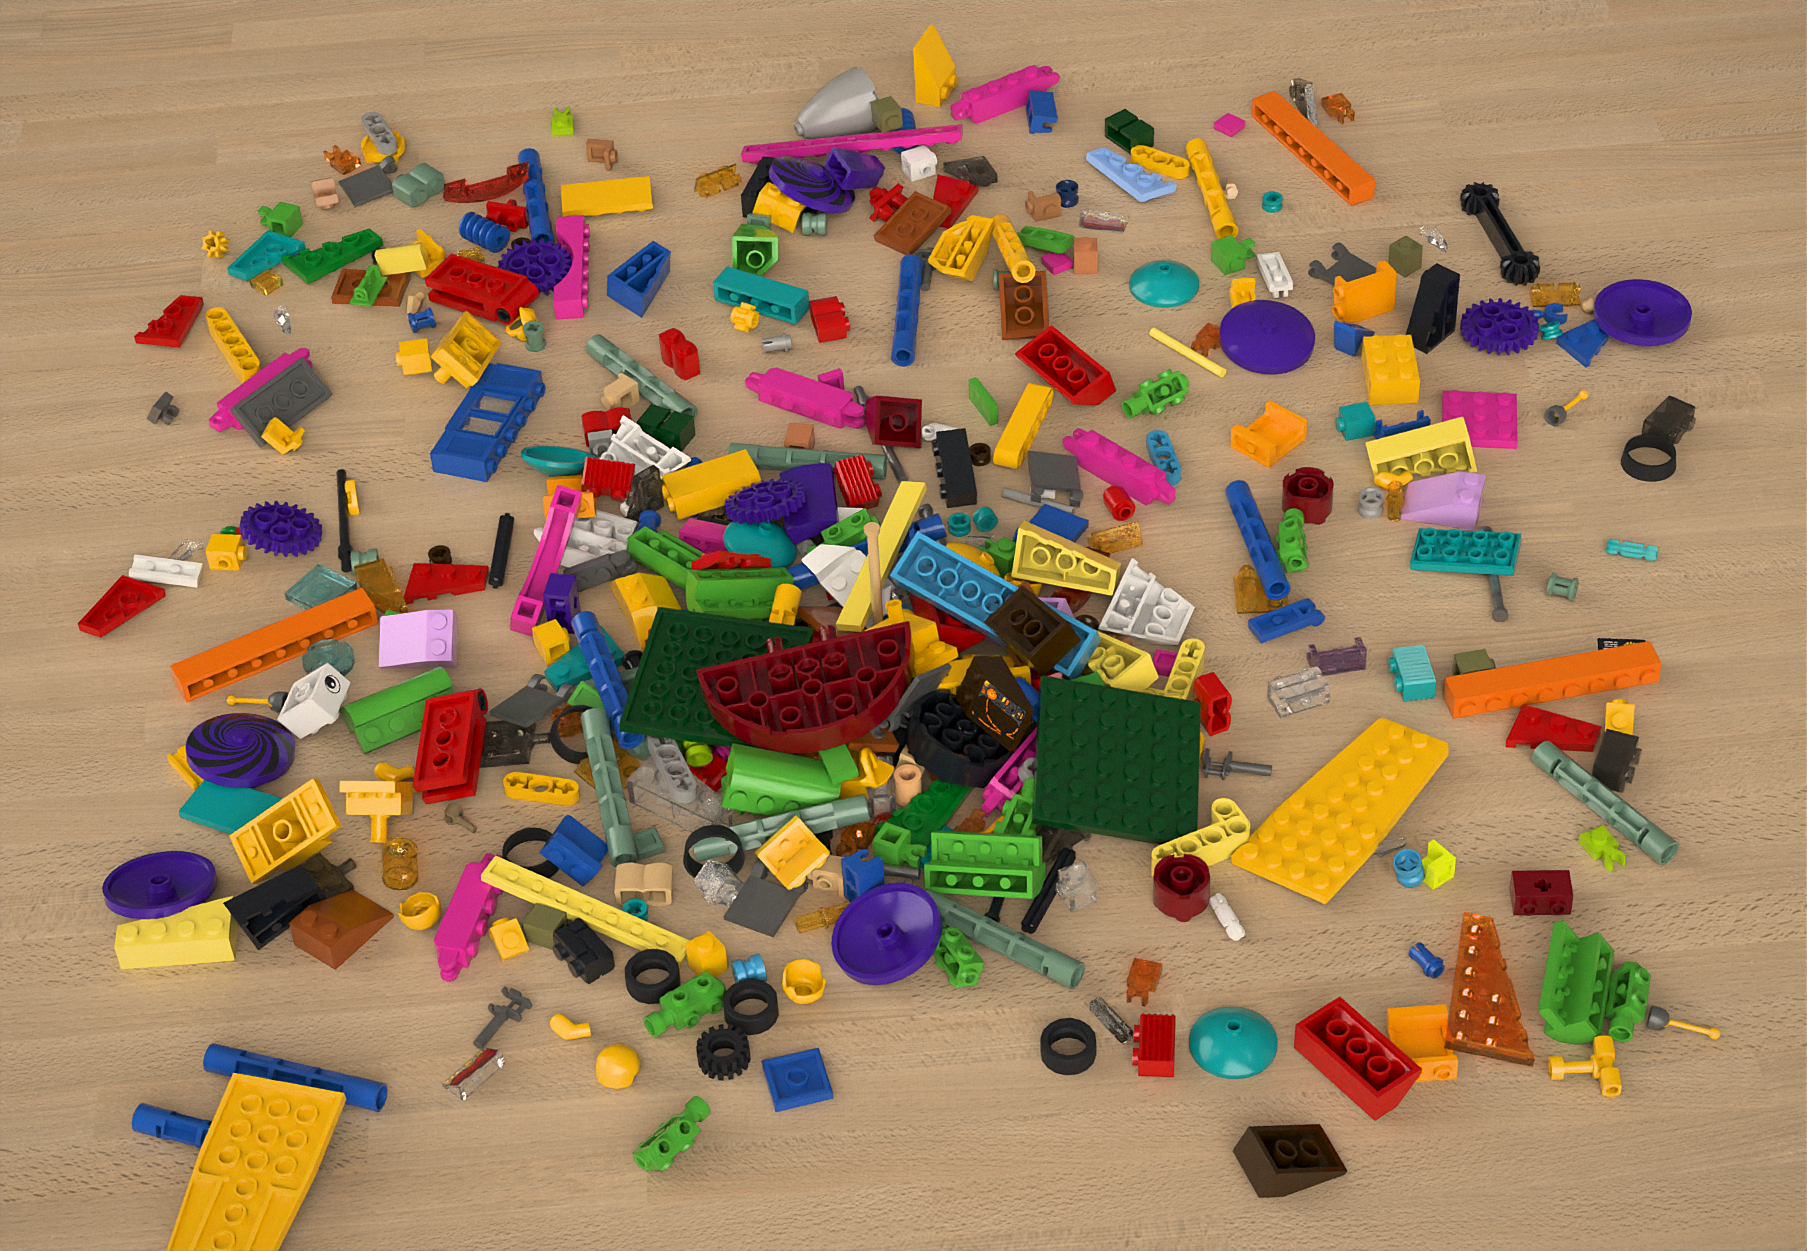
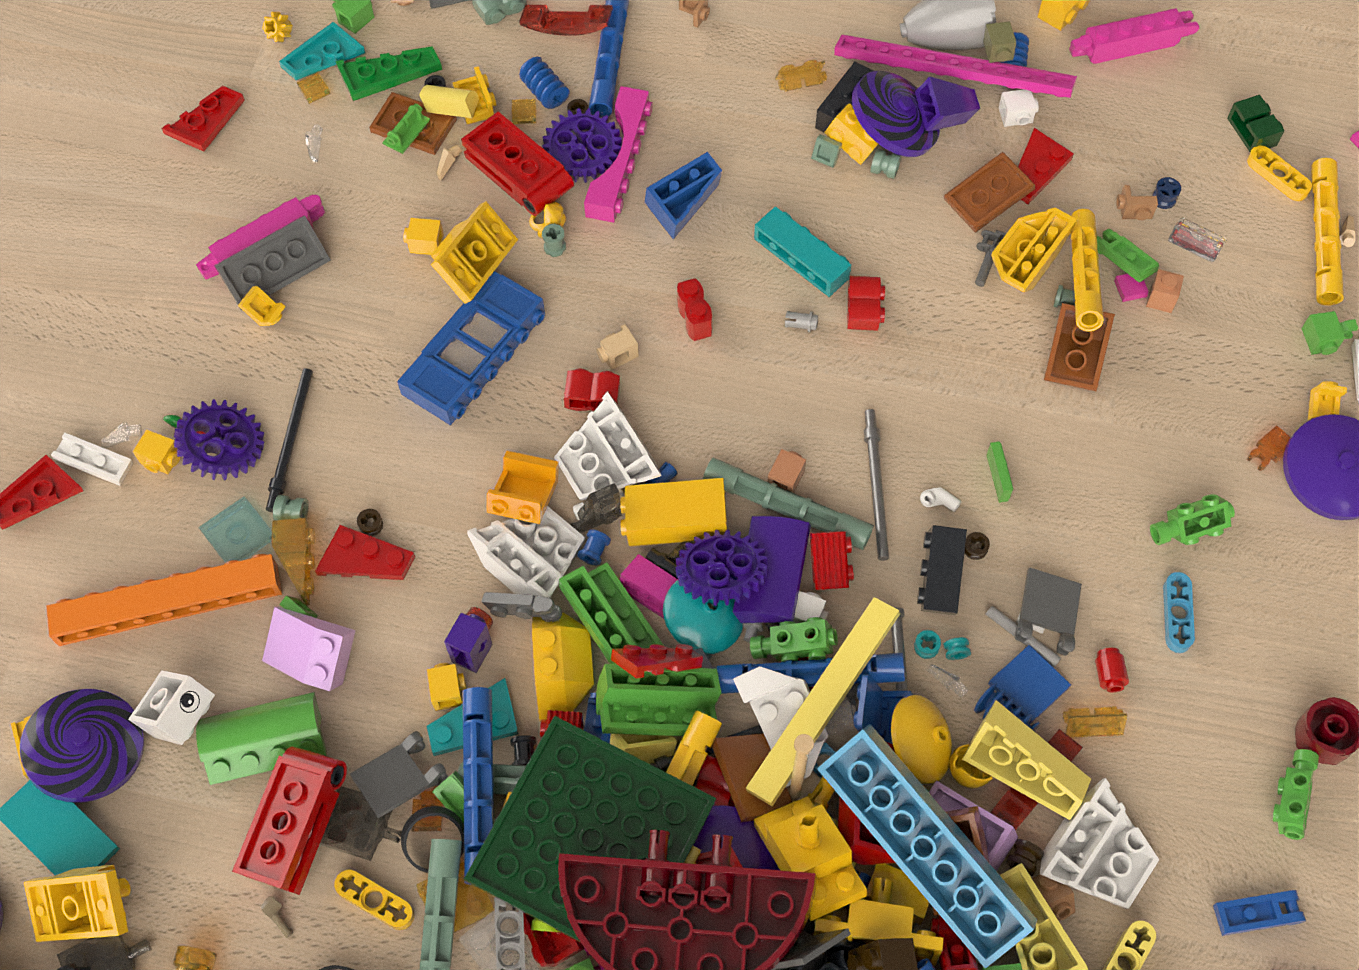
camera: 15 degrees right, 20 degrees up
(161, 408) = (157, 232): flat silver tile -> none
(232, 344) = (252, 167): yellow beam -> none
(275, 700) = (141, 681): hinge -> none
(329, 651) = (215, 634): clear light blue tile -> none
(353, 503) = (308, 407): yellow tile -> none
(378, 801) = (191, 877): yellow brick -> none
(390, 773) = (225, 826): yellow arm -> none
(416, 324) = (442, 184): blue bush -> none
(501, 550) = (434, 533): black axle -> none
(507, 214) = (575, 63): red hips -> none
(549, 555) = (465, 585): dark pink arch -> none
(555, 460) = (526, 425): teal dish -> none
(599, 442) = (576, 412): light grey tile -> none
(606, 197) = (682, 66): yellow tile -> none
(607, 478) = (565, 478): red brick -> none
(648, 384) = (646, 334): sand green piece -> none
(675, 432) = (655, 416): dark green piece -> none
(745, 317) = (777, 276): yellow gear -> none
(754, 248) = (811, 186): bright green slope -> none
(807, 398) = (811, 411): dark pink hinge -> none
(833, 378) = (842, 397): dark pink tile -> none
(885, 200) = (979, 151): red hips -> none
(894, 421) = (894, 479): dark red slope -> none
(907, 310) = (951, 315): blue piece -> none
(974, 170) = (1073, 134): clear smoke wing -> none
(1002, 553) = (961, 717): bright green brick -> none
(1023, 426) = (1034, 521): yellow beam -> none
(1033, 631) = (957, 907): dark brown slope -> none
(1039, 110) = (1166, 69): blue hinge -> none
(1067, 368) = (1101, 456): red slope -> none
(1119, 467) = (1126, 619): dark pink hinge -> none
(1129, 176) = (1240, 185): light blue wing -> none
(1164, 283) = (1239, 360): teal dish -> none
(1164, 662) = (1105, 931): dark pink tile -> none
(1187, 352) = (1243, 460): light yellow bar -> none
(1251, 595) = (1240, 858): clear yellow hinge -> none
(1257, 540) = (1256, 782): blue piece -> none
(1270, 435) = (1307, 616): light orange panel -> none

